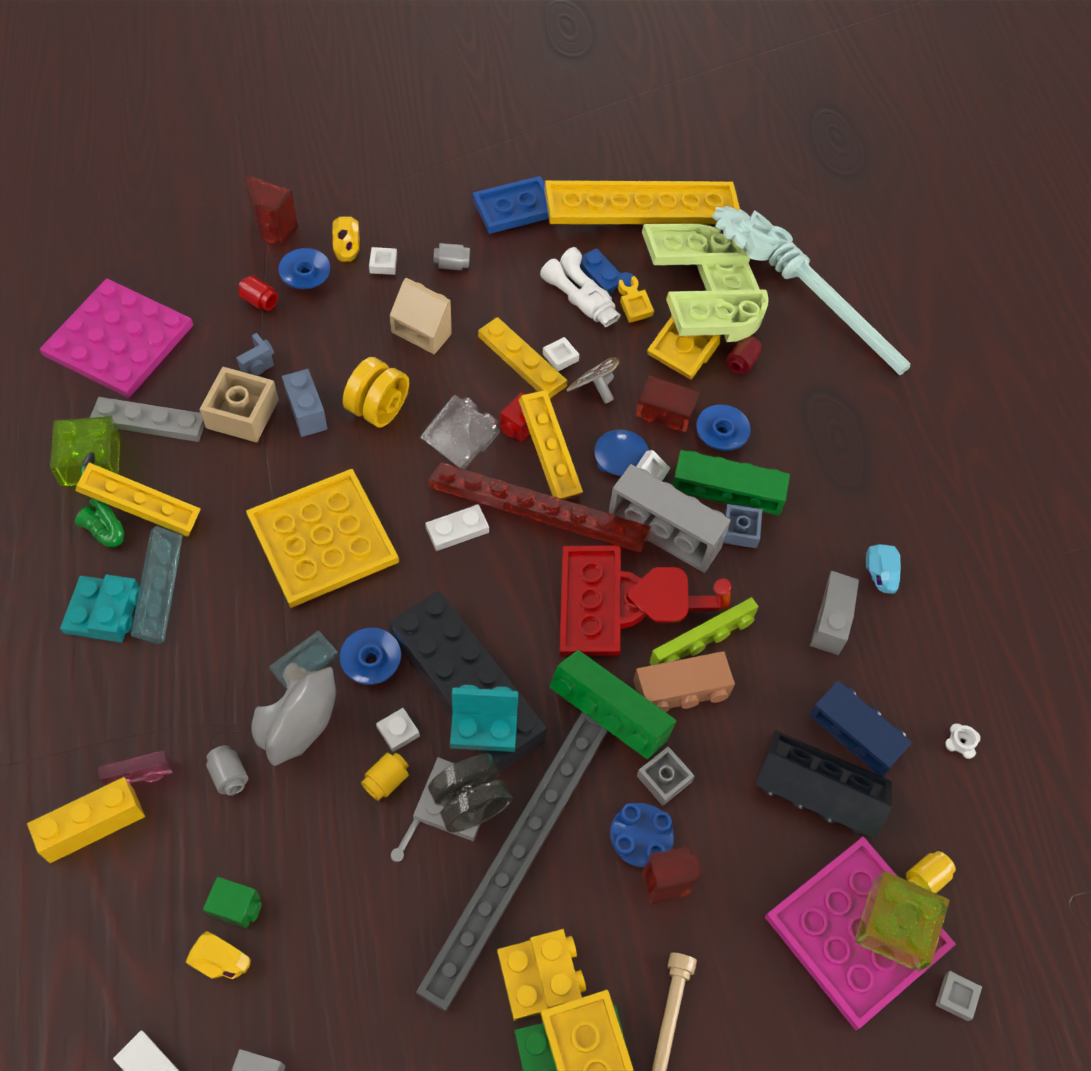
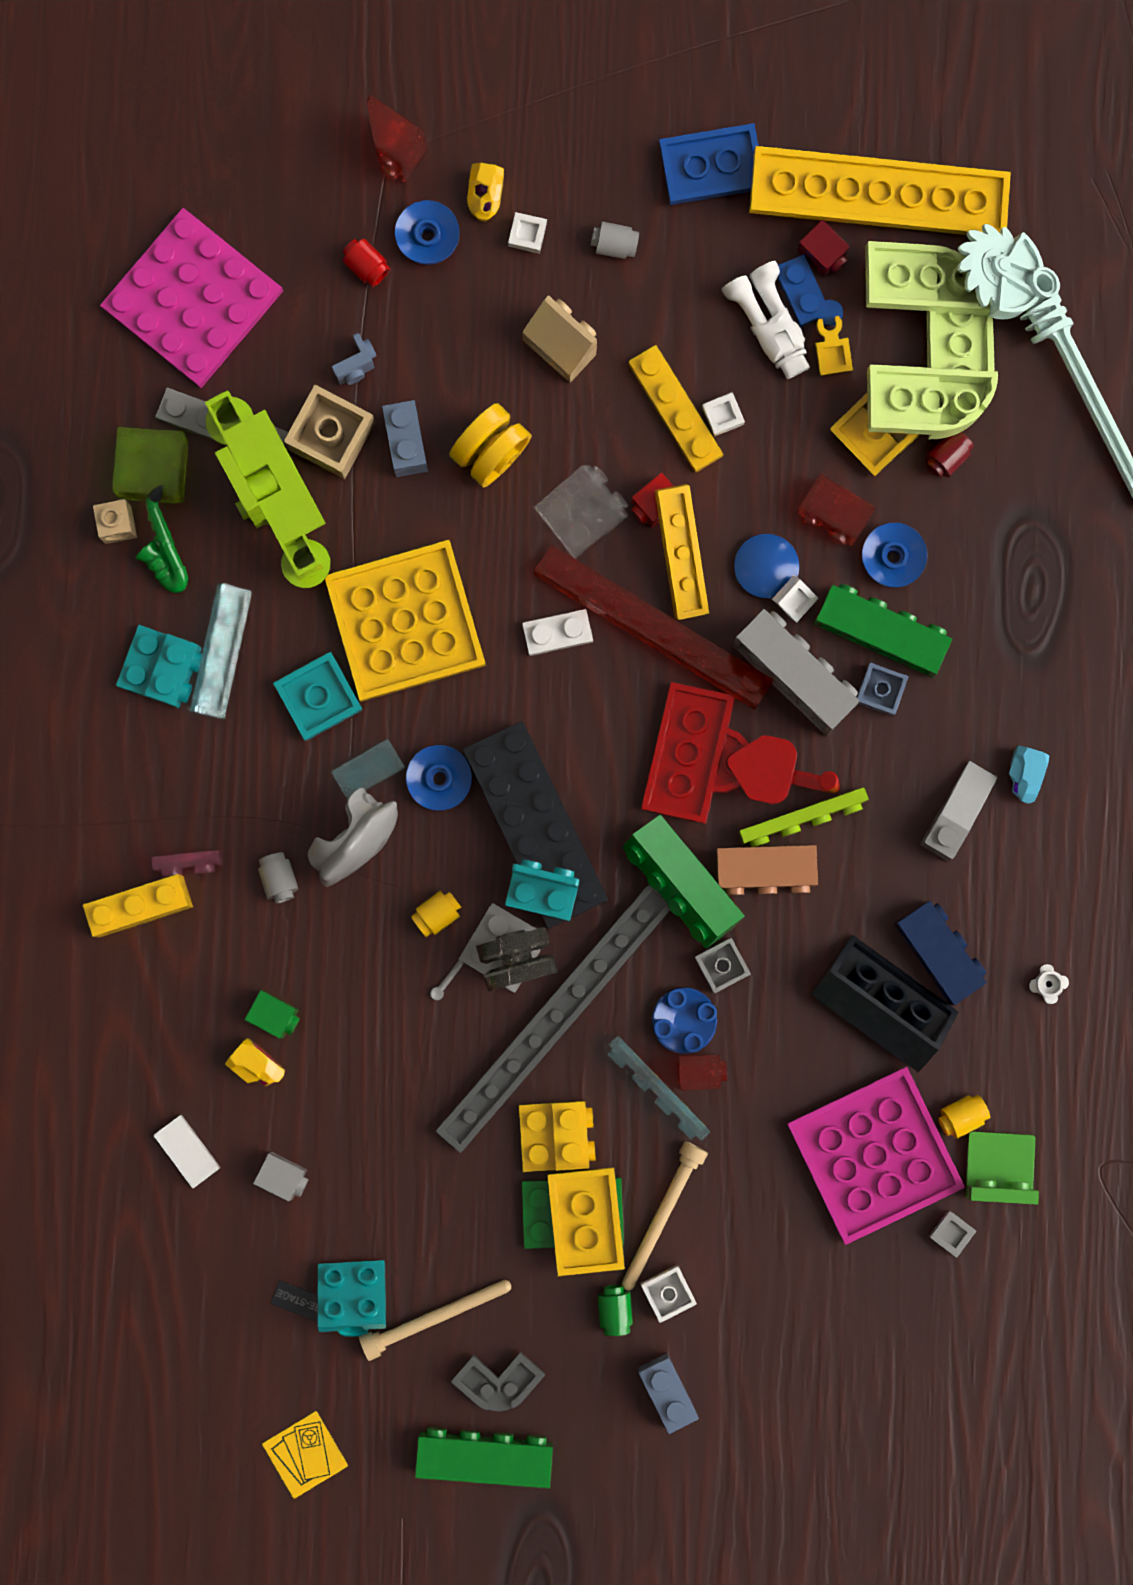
camera: 15 degrees right, 25 degrees up
(55, 496) = (115, 521): none -> tan brick
(137, 499) = (207, 547): yellow plate -> none
(192, 447) = (272, 492): none -> lime piece
(250, 608) = (318, 696): none -> teal plate
(397, 730) = (456, 863): white plate -> none
(601, 377) = (760, 457): light grey shield -> none
(611, 241) = (824, 249): none -> dark red brick
(643, 912) = (666, 1100): none -> clear light blue plate
(902, 921) = (914, 1160): clear neon green brick -> none
(983, 920) = (1001, 1168): none -> bright green bracket

